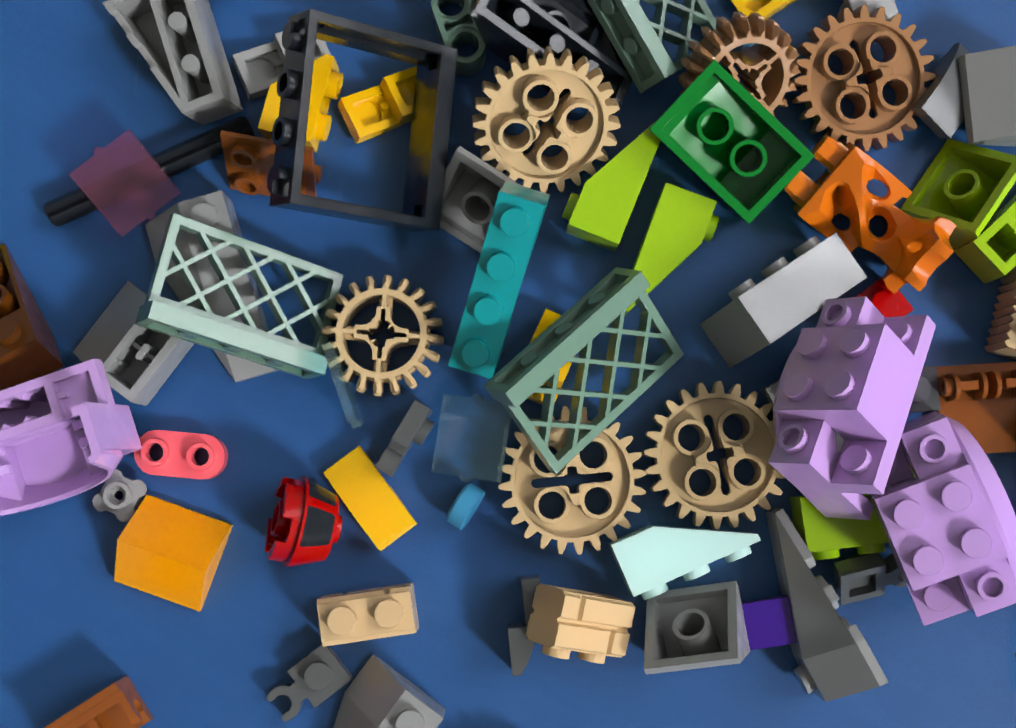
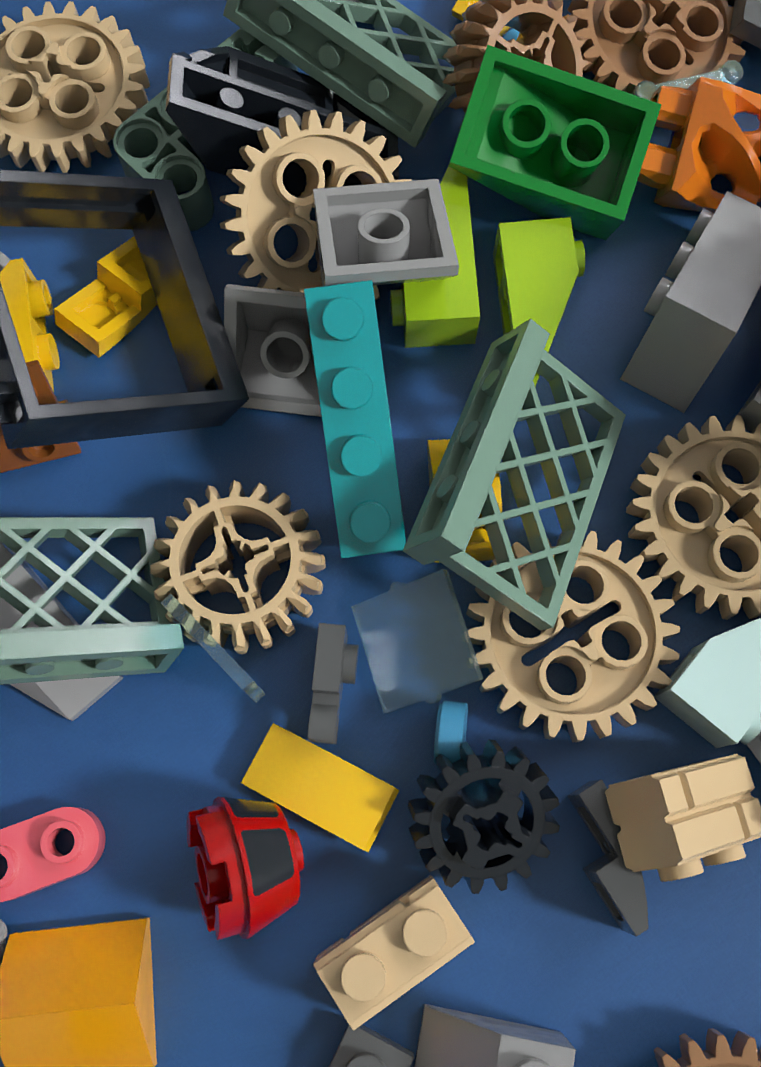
camera: 20 degrees left, 10 degrees down
(459, 564) = (481, 789): none -> black gear
(575, 166) = (384, 233): none -> light grey slope
(892, 140) = (729, 72): none -> clear light blue hinge

